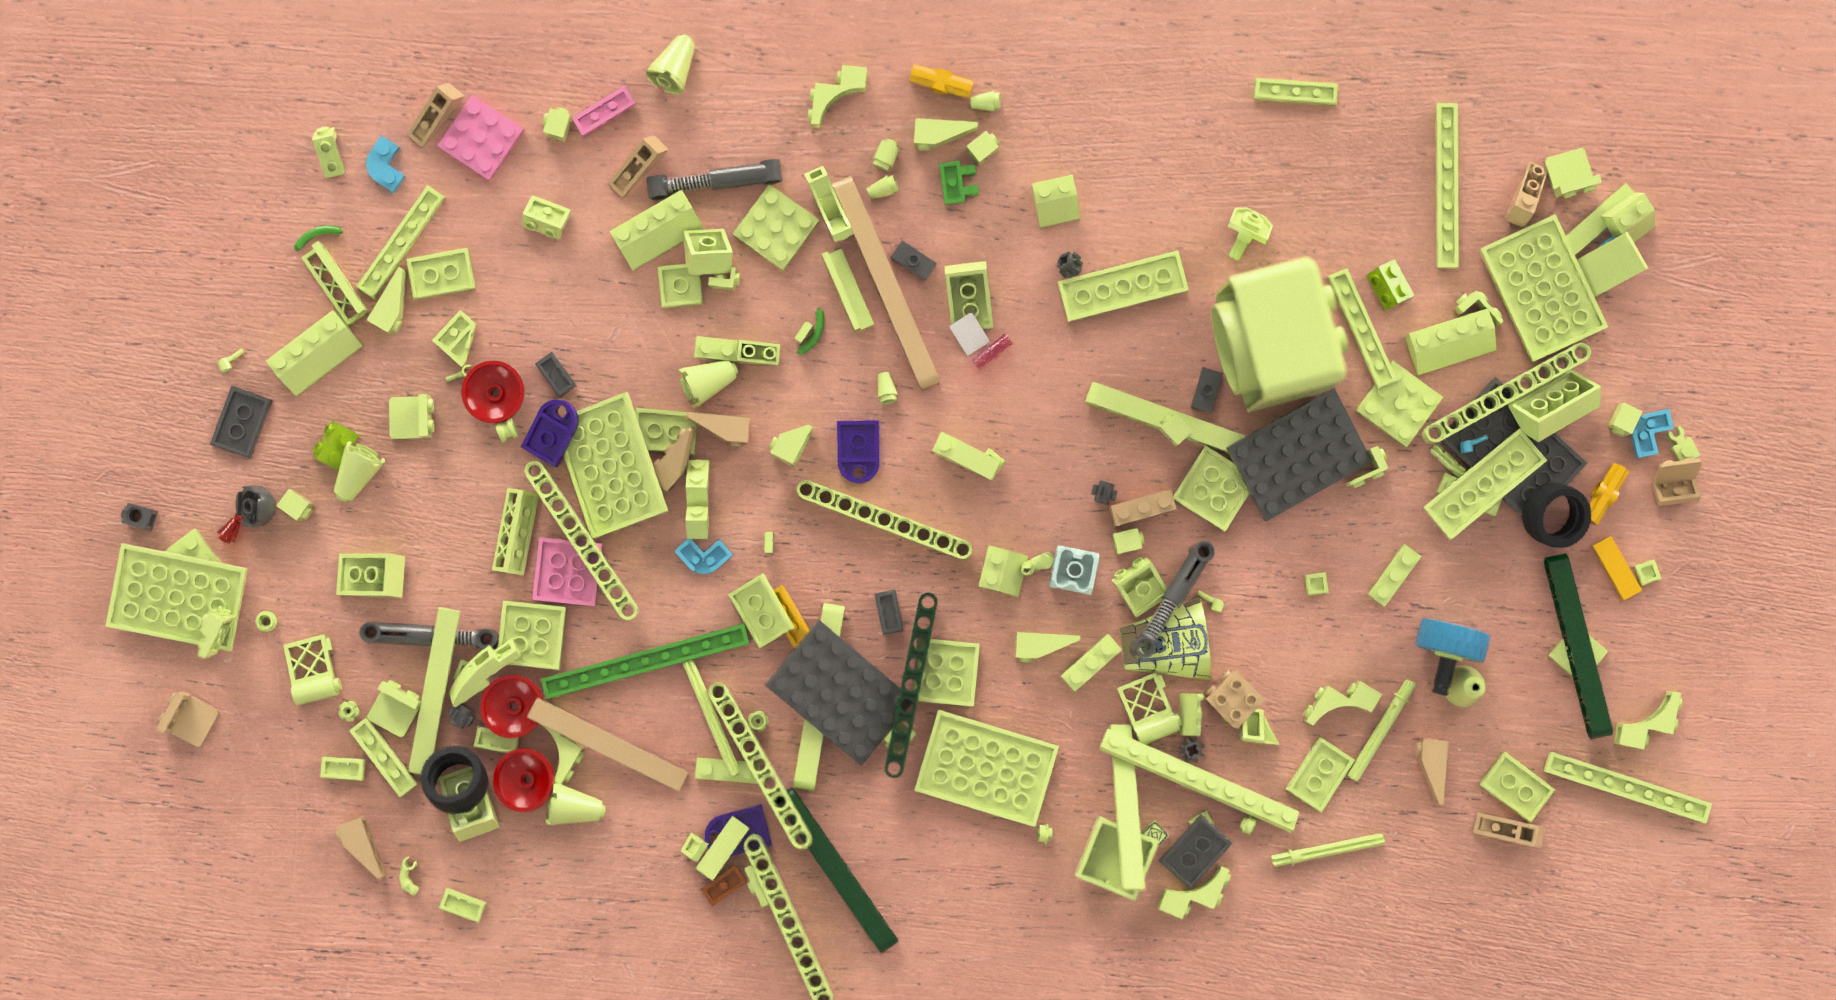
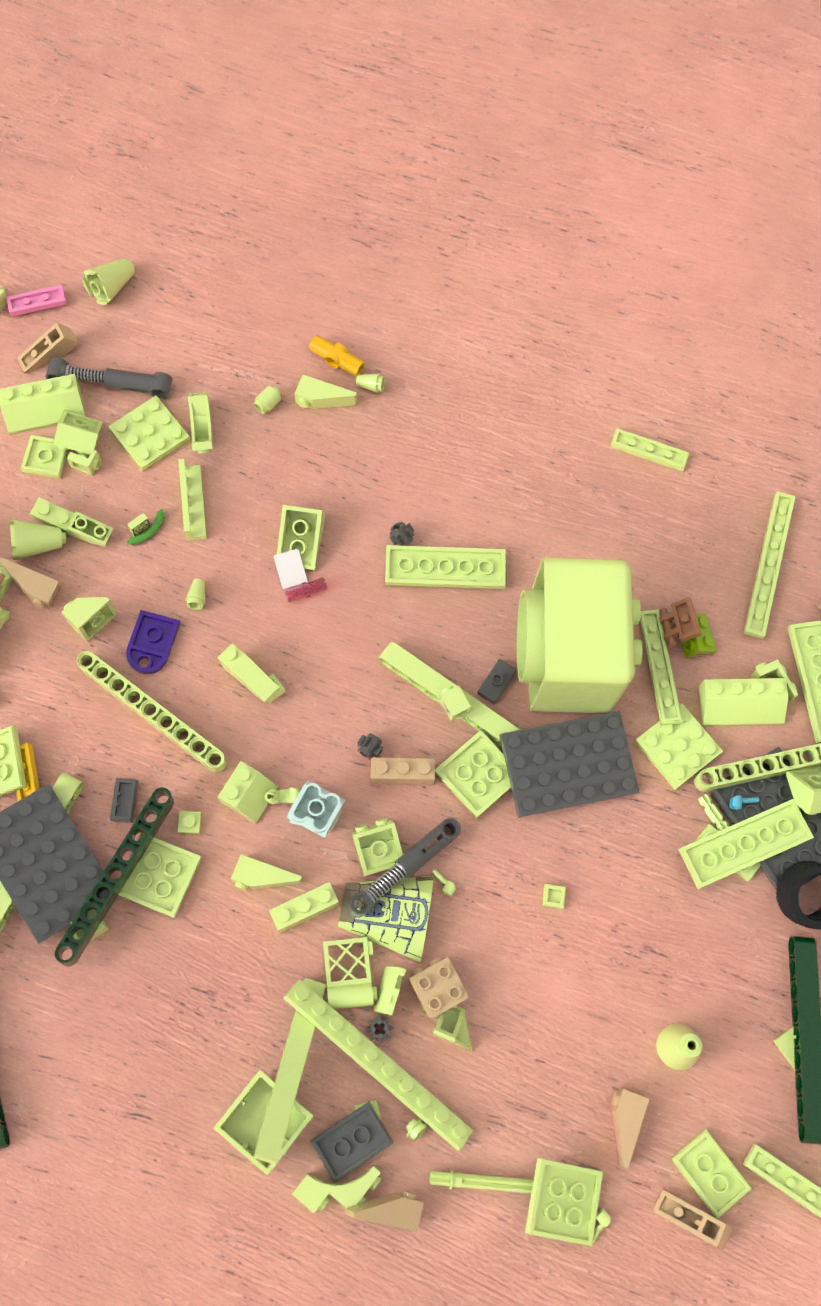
camera: 15 degrees right, 15 degrees down
(769, 542) = (34, 701): yellowish green tile -> none
(851, 80) = (230, 339): yellowish green arch -> none
(884, 187) = (256, 425): yellowish green cone -> none
(886, 283) = (229, 506): tan beam -> none
(913, 260) = (261, 493): dark grey plate -> none
(952, 182) = (319, 436): bright green plate -> none
(956, 614) = (189, 822): none -> yellowish green plate
(983, 147) = (355, 417): yellowish green brick -> none
(986, 768) = (165, 986): yellowish green plate -> none
(1044, 833) = (200, 1074): yellowish green plate -> none
(1055, 201) = (406, 477): yellowish green slope -> none
(1127, 541) = (378, 799): yellowish green brick -> none
(1155, 831) = (317, 1107): tile -> none
(1247, 897) = (390, 1210): none -> tan slope
(1249, 226) = (577, 545): yellowish green piece -> none
(1320, 774) = (506, 1097): yellowish green tile -> none
(1328, 699) = (569, 1023): yellowish green arch -> none
(1376, 276) = (685, 619): none -> nougat plate
(1378, 457) = (646, 797): yellowish green bracket -> none
(1382, 729) = (582, 1067): yellowish green axle -> none
(1394, 575) = (633, 910): yellowish green plate -> none
(1394, 847) = (564, 1202): none -> yellowish green plate
(1432, 851) = (604, 1220): none -> yellowish green hand
(1451, 644) = (677, 994): dark azure wheel -> none

